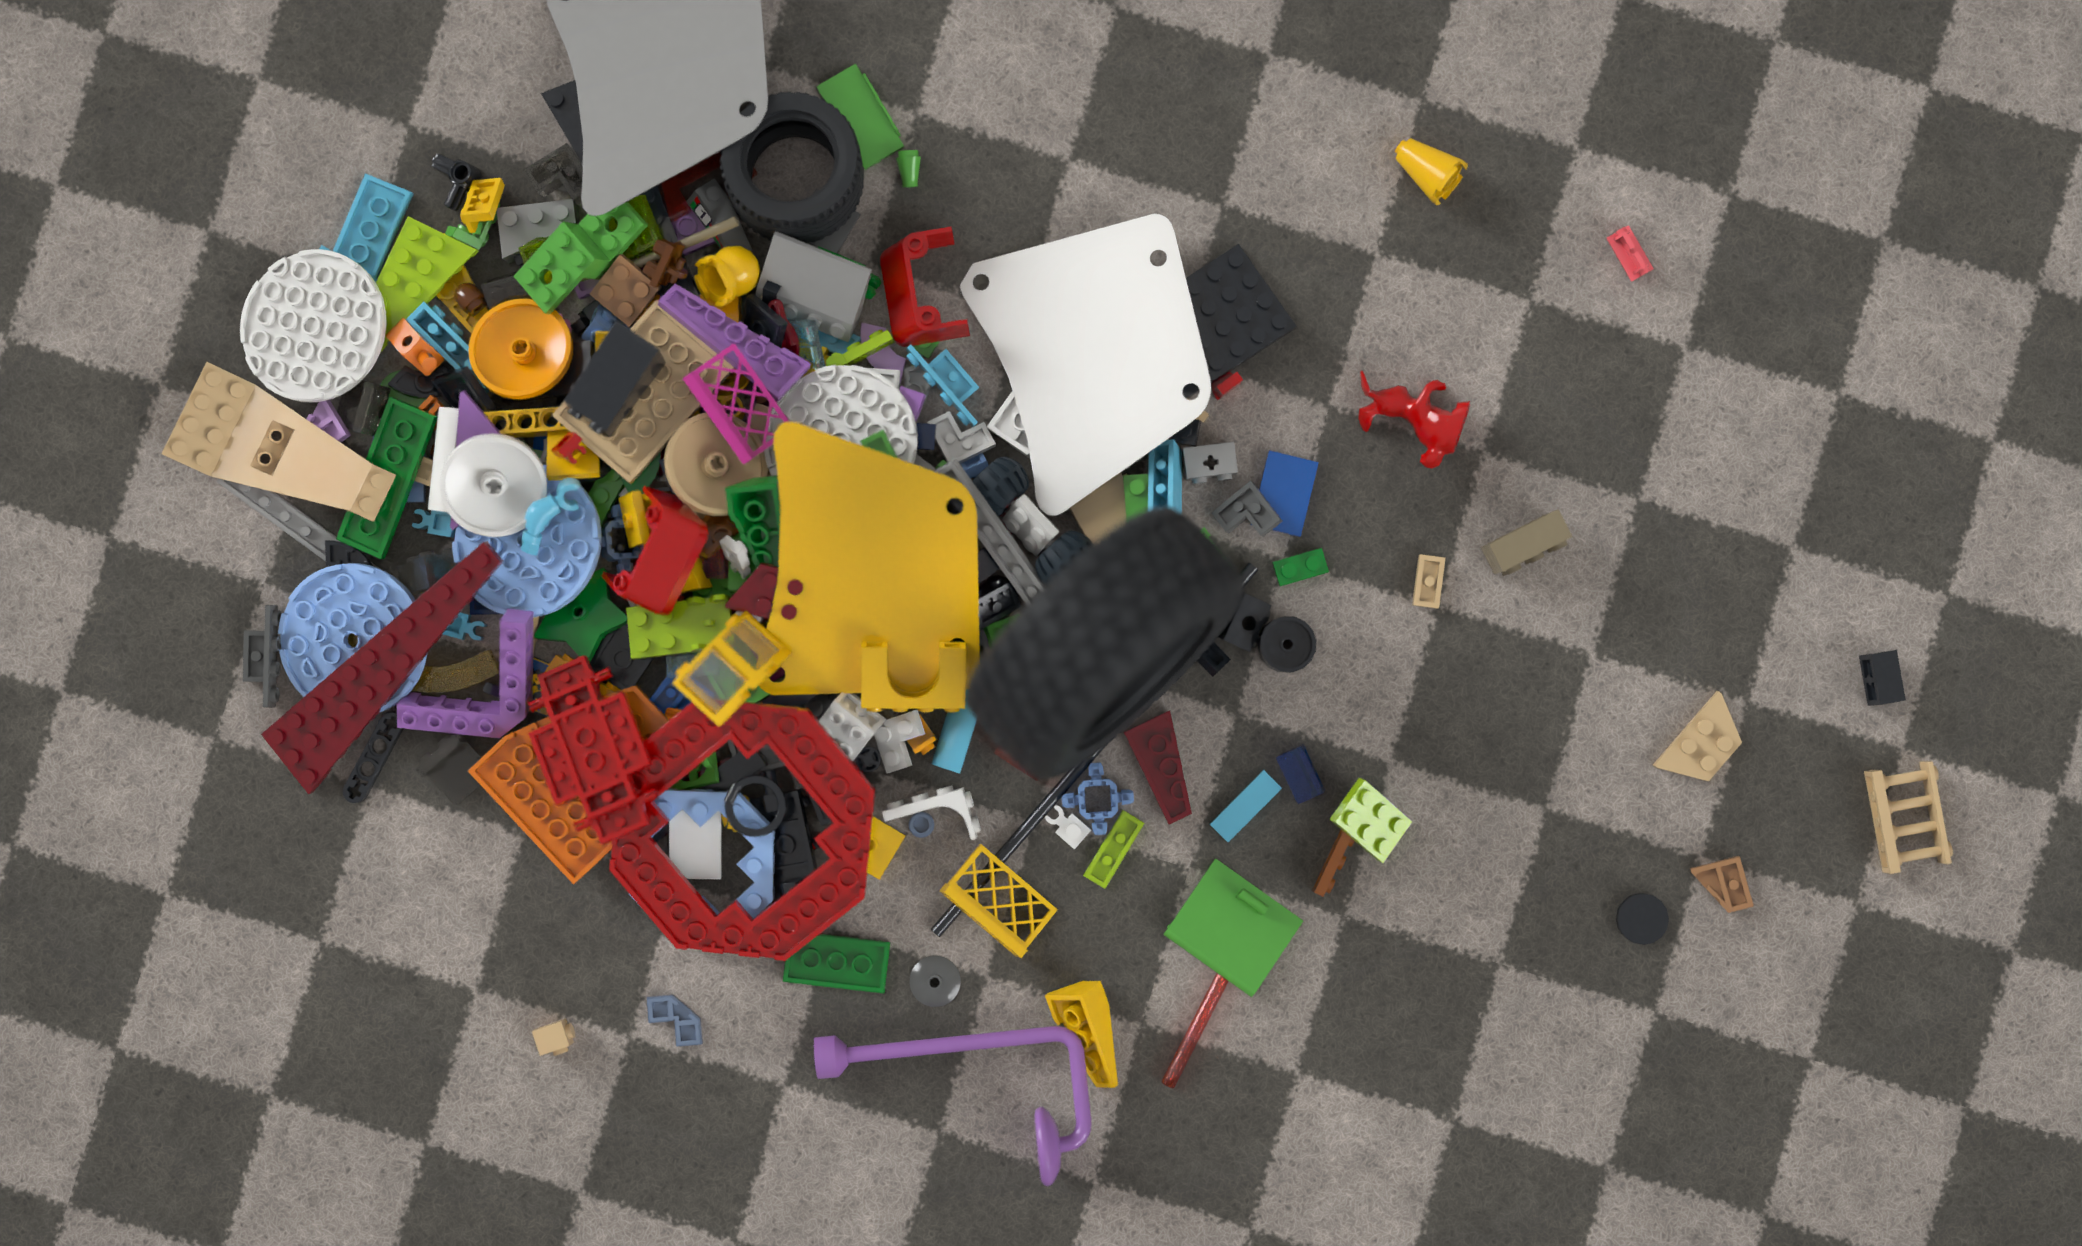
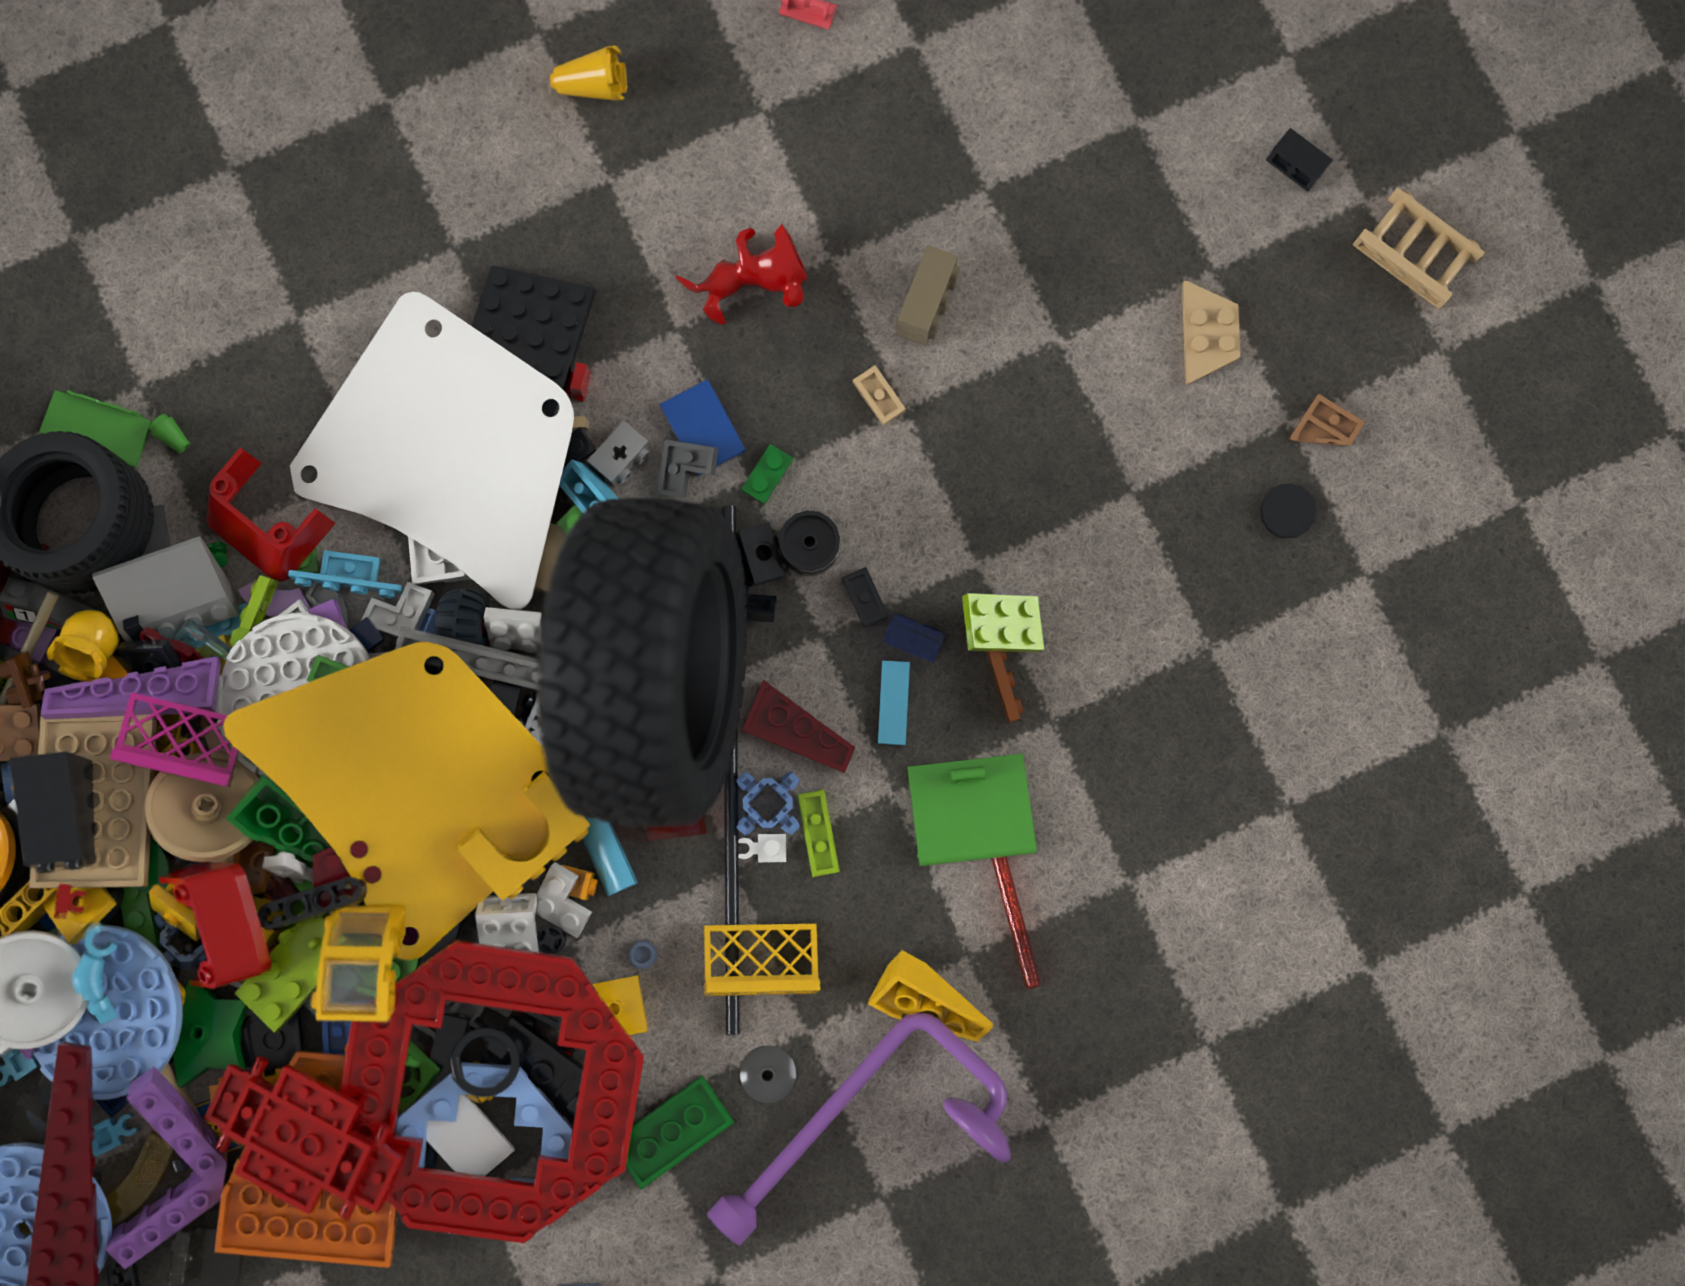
camera: 45 degrees left, 5 degrees down
(731, 599) = (312, 905): none -> black beam
(947, 797) = (639, 912): white bracket -> none
(1291, 715) = (865, 597): none -> black plate

